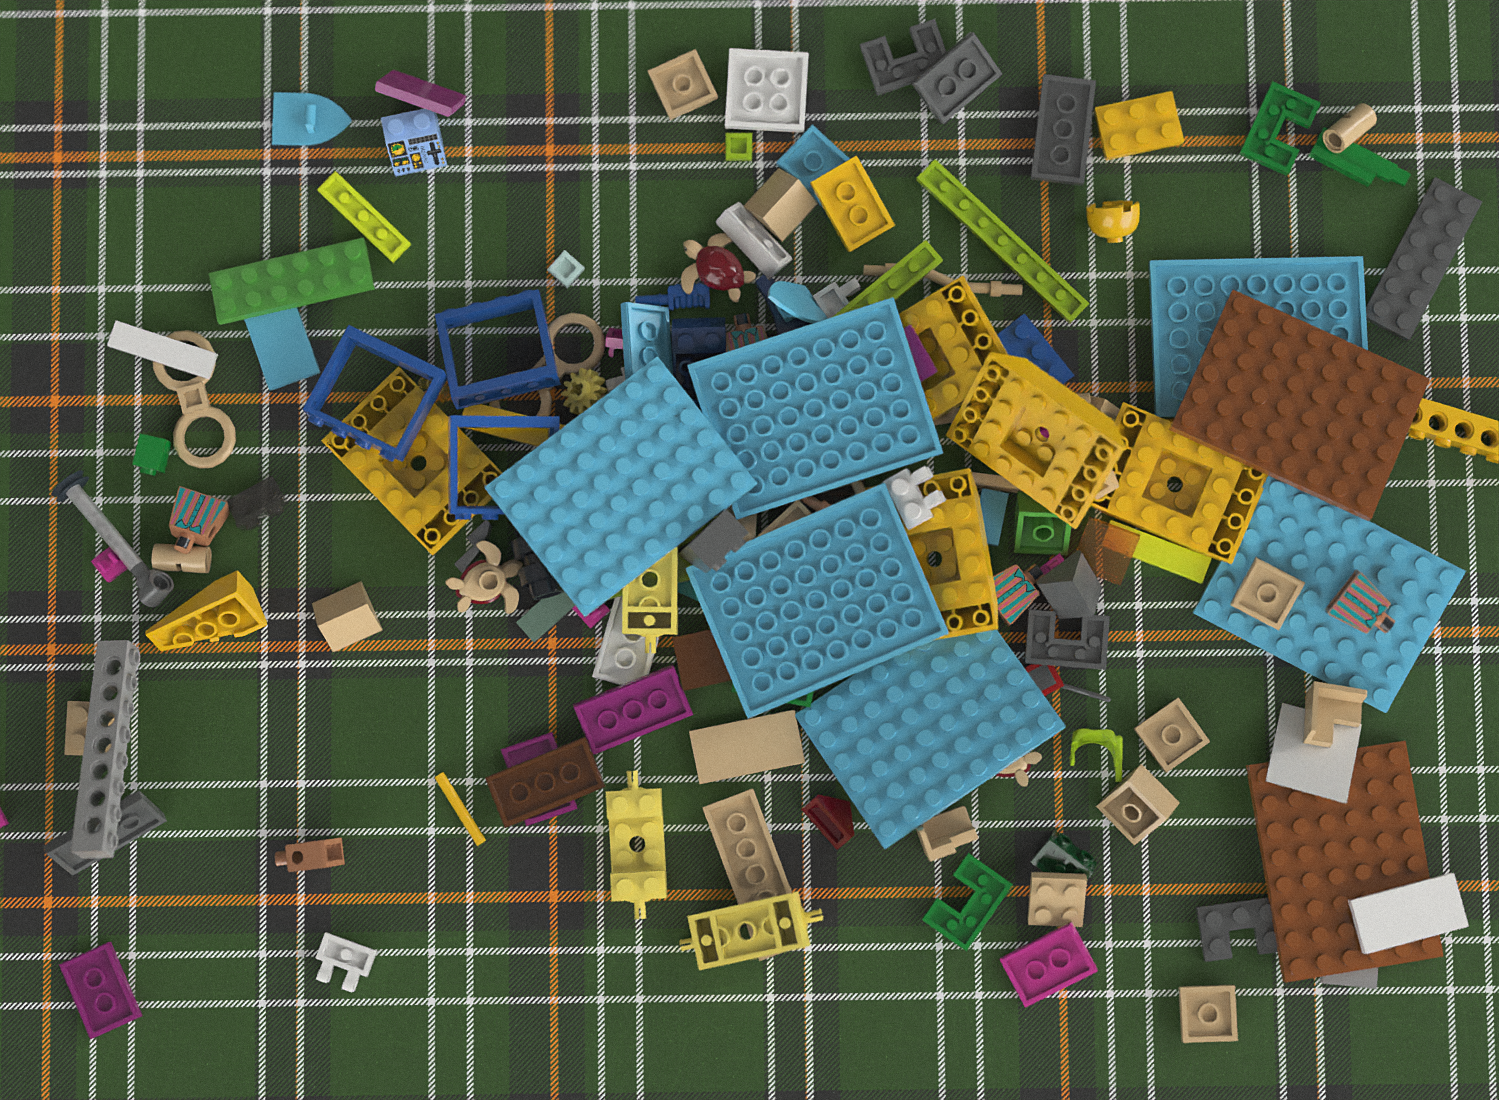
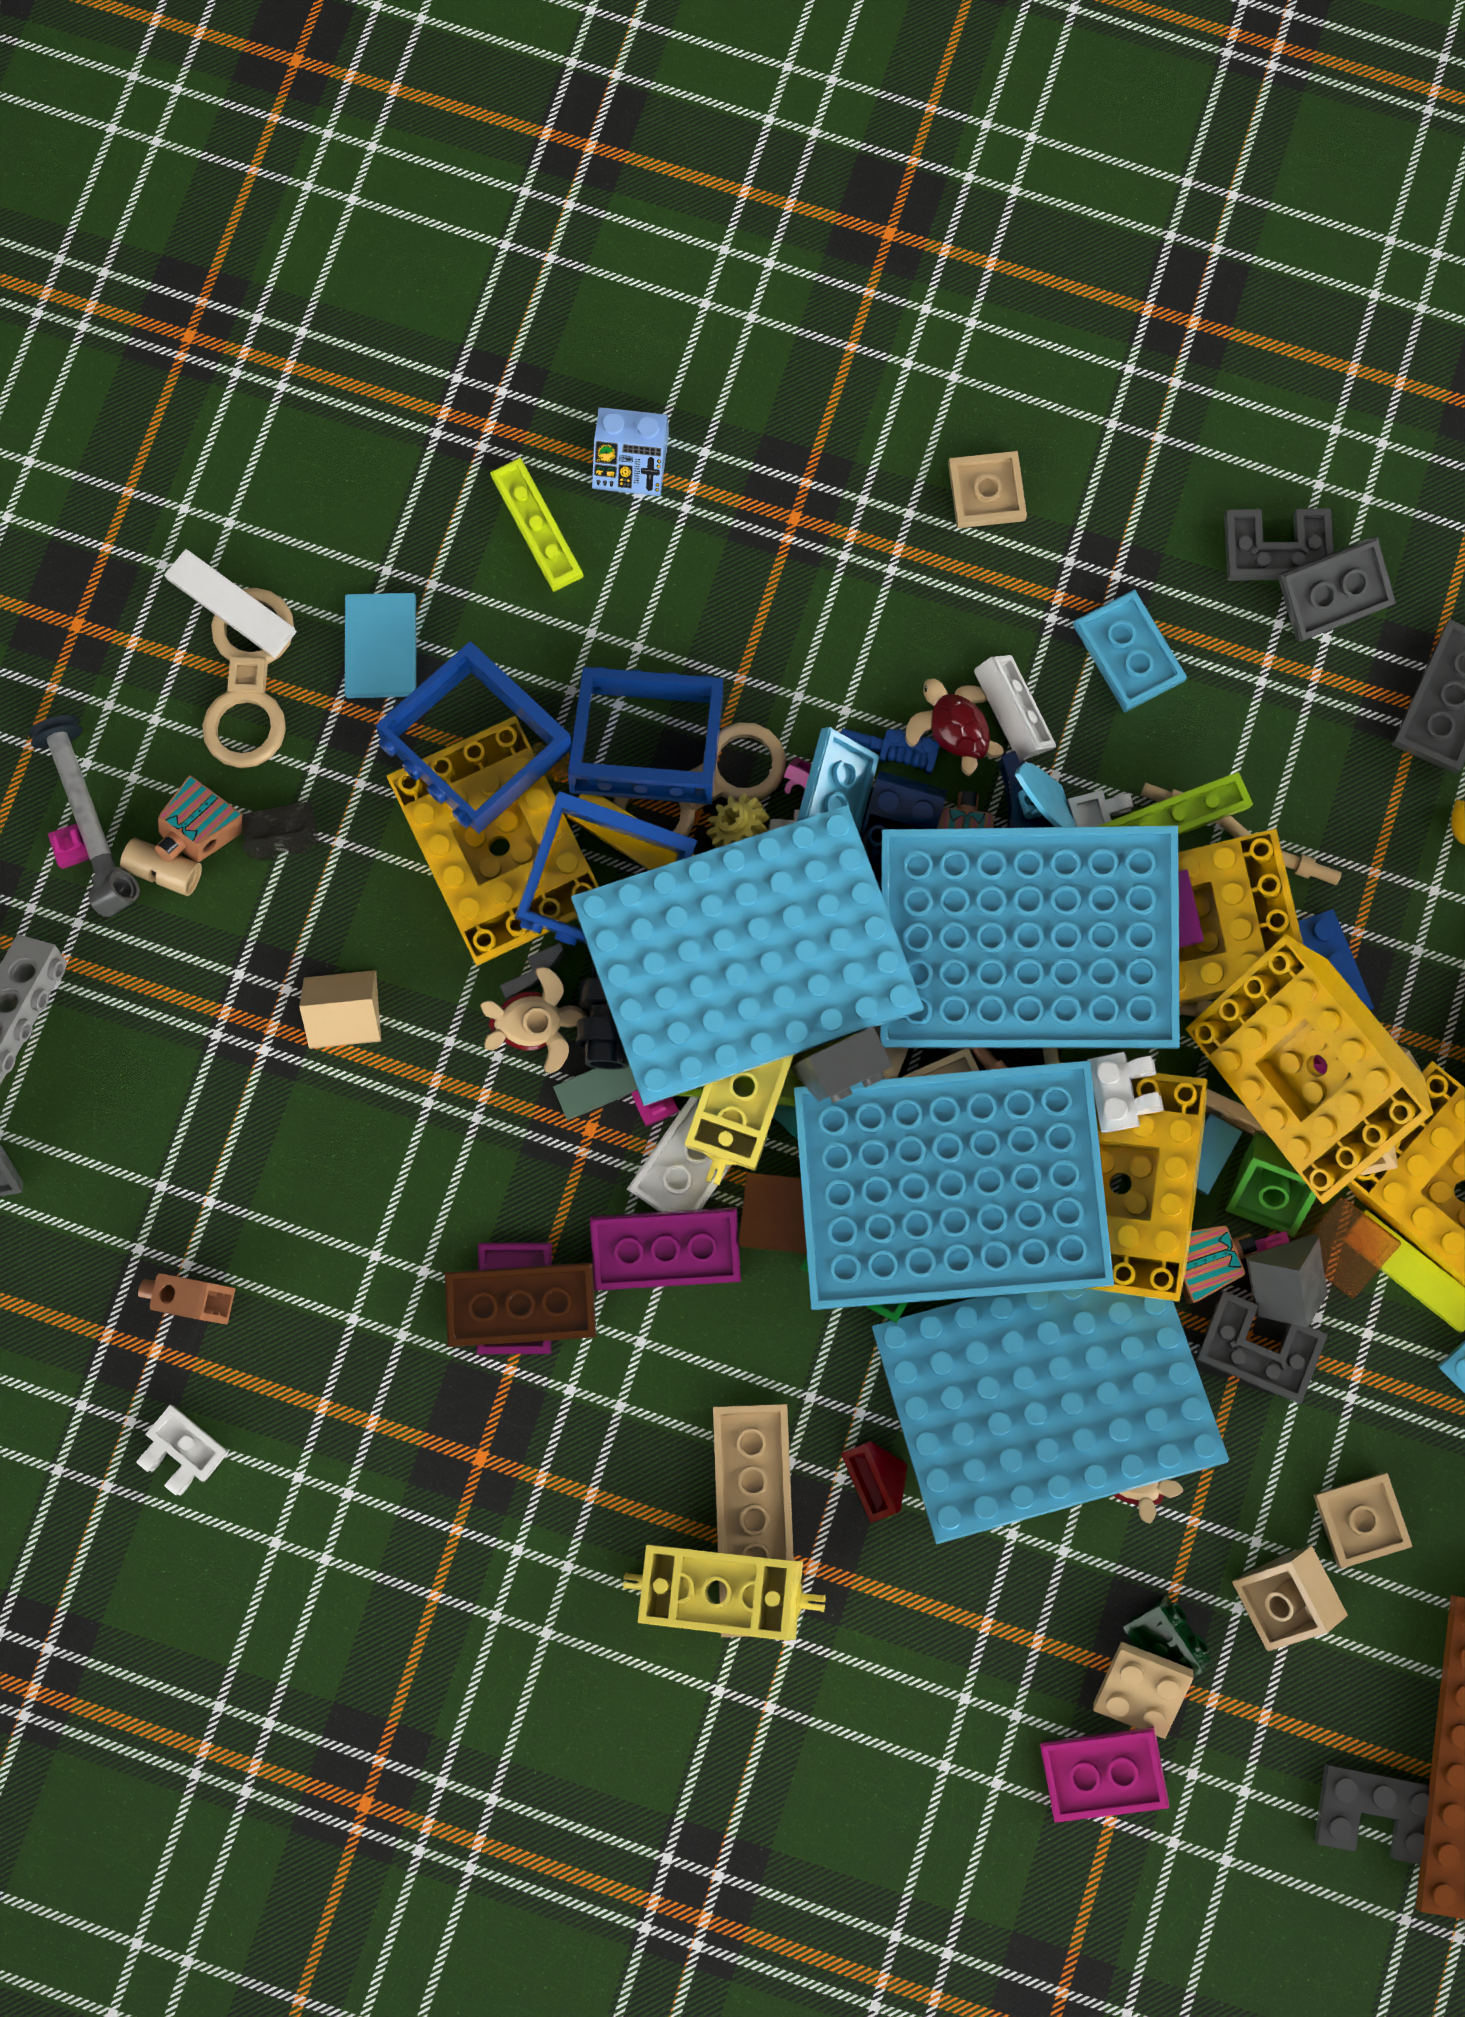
camera: 15 degrees right, 5 degrees down
(151, 454) = (170, 726): green brick -> none
(216, 611) = (182, 947): yellow wedge -> none
(291, 281) = (419, 572): bright green plate -> none
(306, 119) = (506, 386): medium azure shield -> none
(420, 93) = (657, 394): magenta tile -> none
(460, 809) = (399, 1303): yellow bar -> none
(565, 269) = (765, 667): light aqua tile -> none
(634, 874) = (606, 1468): light yellow brick -> none
(738, 147) = (1032, 587): lime tile -> none
(747, 746) = (797, 1347): tan tile -> none
(766, 90) = (1090, 529): white plate -> none
(781, 204) = (1064, 674): tan slope -> none
(852, 203) = (1155, 700): yellow plate -> none
(945, 832) = (1022, 1549): tan panel -> none
(967, 924) = (1052, 1651): green plate -> none
(1002, 241) = (1333, 811): lime plate -> none
(1049, 681) = (1222, 1395): dark grey piece -> none
(1103, 737) = (1271, 1493): lime helmet -> none
(1208, 1013) = (1300, 1917): tan plate -> none

